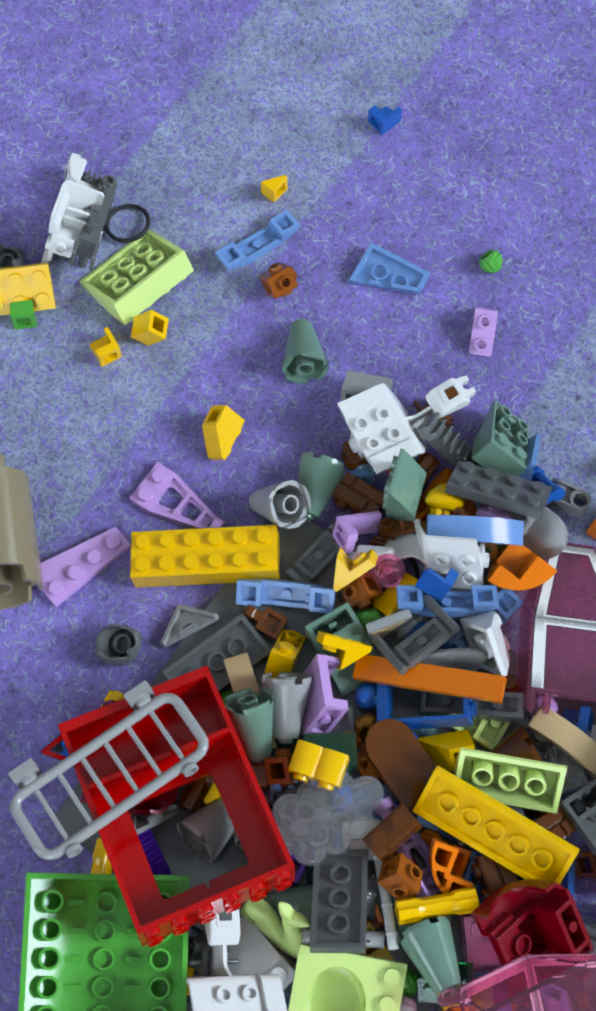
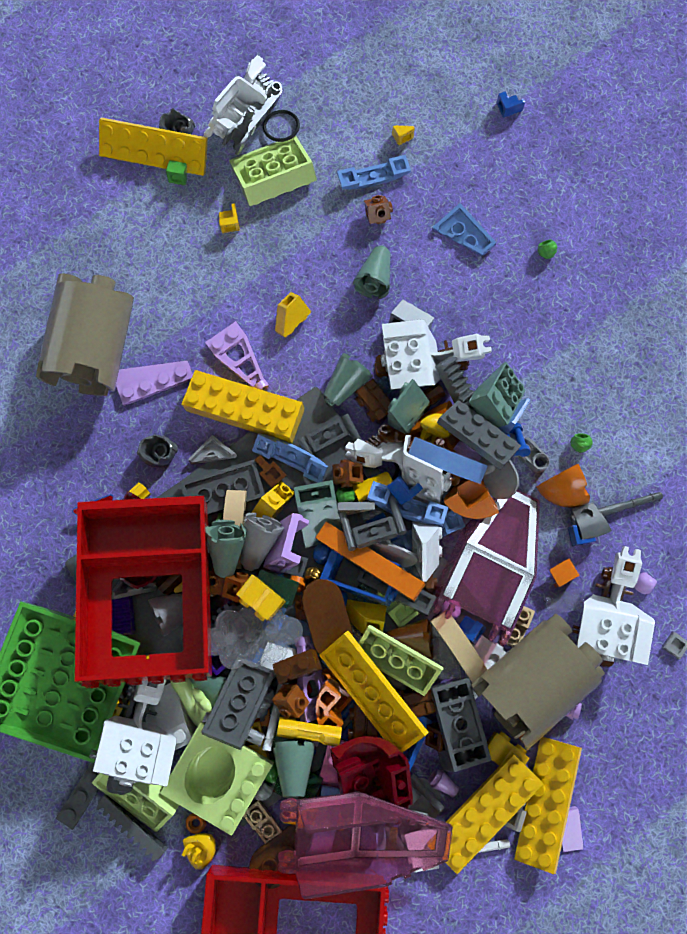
camera: 20 degrees right, 10 degrees up
(30, 777) = (41, 531): light grey bar -> none
(149, 327) = (266, 214): yellow brick -> none
(282, 503) = (313, 387): light grey cone -> none
(348, 649) = (319, 516): yellow slope -> none
(349, 570) = (342, 456): yellow slope -> none
(350, 526) = (356, 422): lavender bracket -> none
(388, 570) = (371, 466): clear pink piece -> none
(483, 331) = (519, 302): lavender bracket -> none

